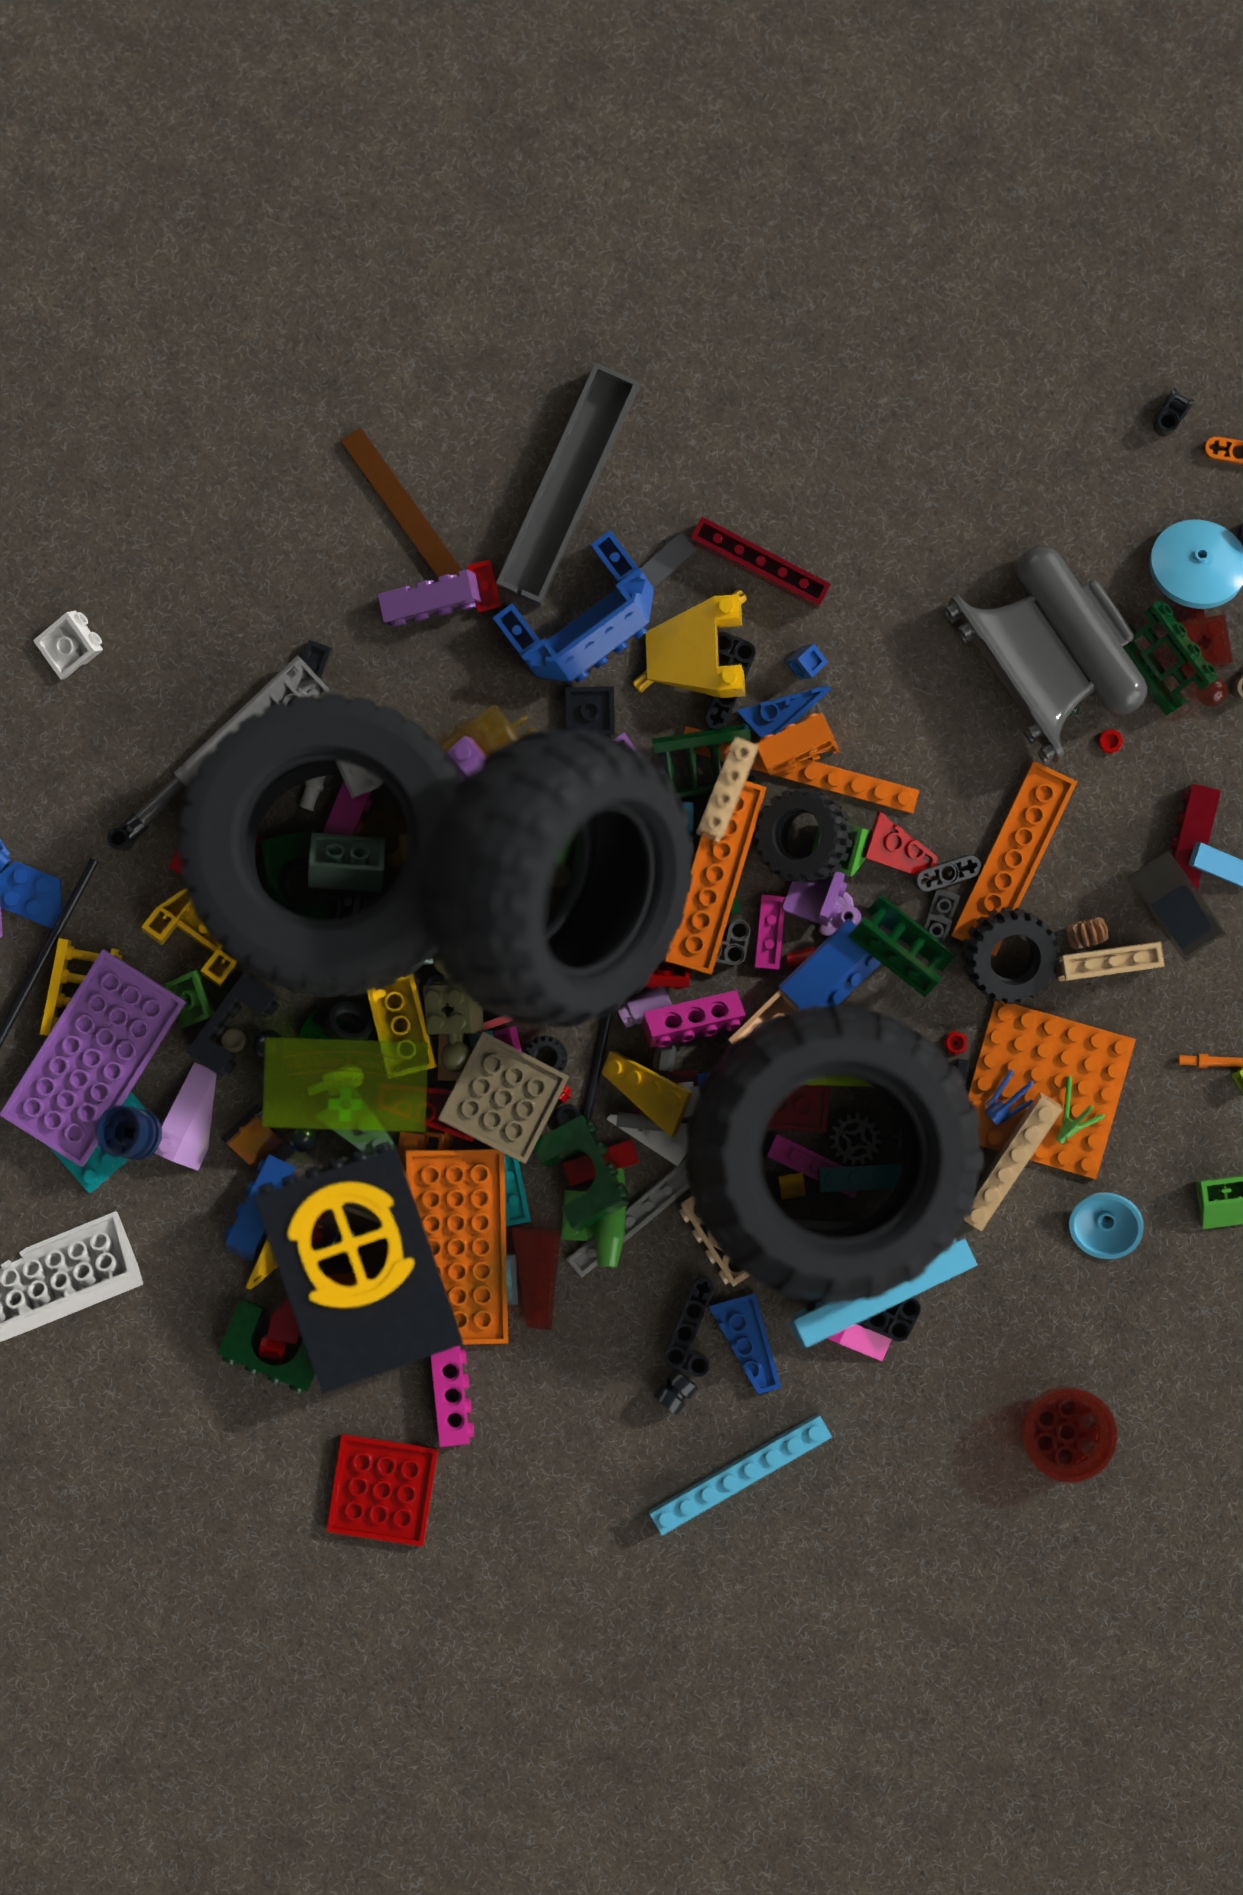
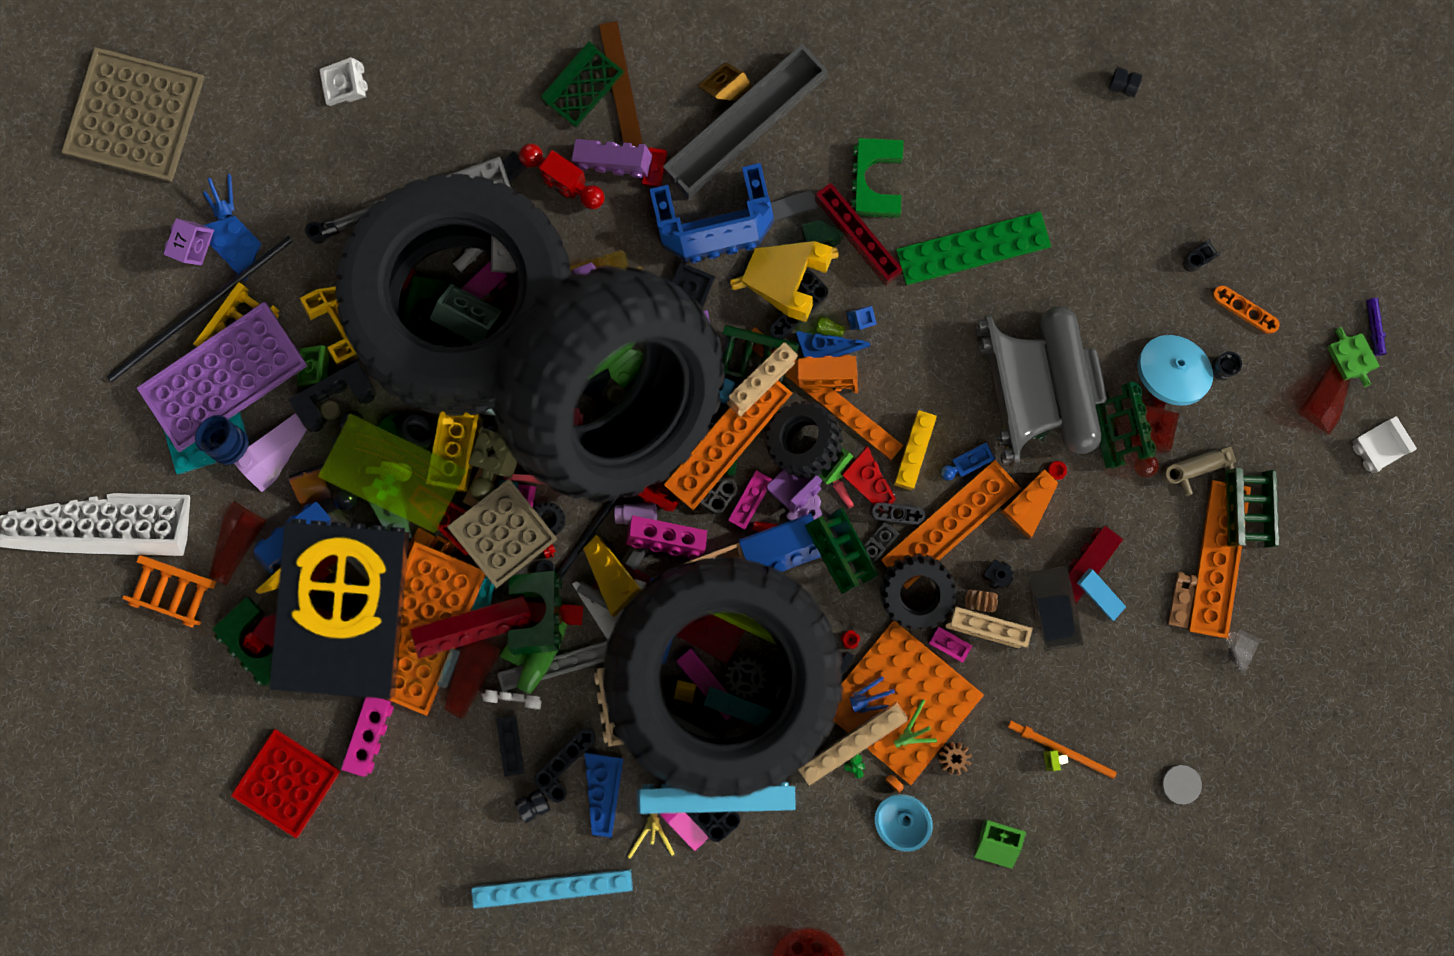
camera: 25 degrees right, 5 degrees down
(132, 1311) = (166, 573): none -> orange fence
(192, 1235) = (236, 536): none -> clear red wedge
(334, 518) = (572, 72): none -> dark green fence
(380, 644) = (562, 175): none -> red brick
(516, 1221) = (470, 627): none -> dark red brick
(524, 448) = (726, 83): none -> pearl gold slope
(619, 1335) = (510, 745): none -> black plate
(624, 1274) = (530, 702): none -> white plant
(715, 581) = (822, 233): none -> clear green slope
(750, 517) = (867, 201): none -> green arch
(771, 689) = (828, 327): none -> clear neon green cone
(822, 1352) = (652, 825): none -> light yellow plant
(869, 873) = (841, 490): none -> coral animal
(901, 519) = (973, 248): none -> green plate
(936, 790) = (915, 450): none -> yellow brick
(996, 239) = (1127, 82): none -> black wheel
(1003, 777) = (968, 462): none -> blue plate
(1024, 1186) = (855, 766): none -> green plant
(1072, 998) = (950, 644): none -> dark pink plate
(1076, 1185) = (894, 783): none -> orange tile
(1085, 893) = (991, 574): none -> black brick
(1097, 794) = (1030, 504): none -> orange wedge
(1132, 1117) = (956, 751): none -> medium nougat gear

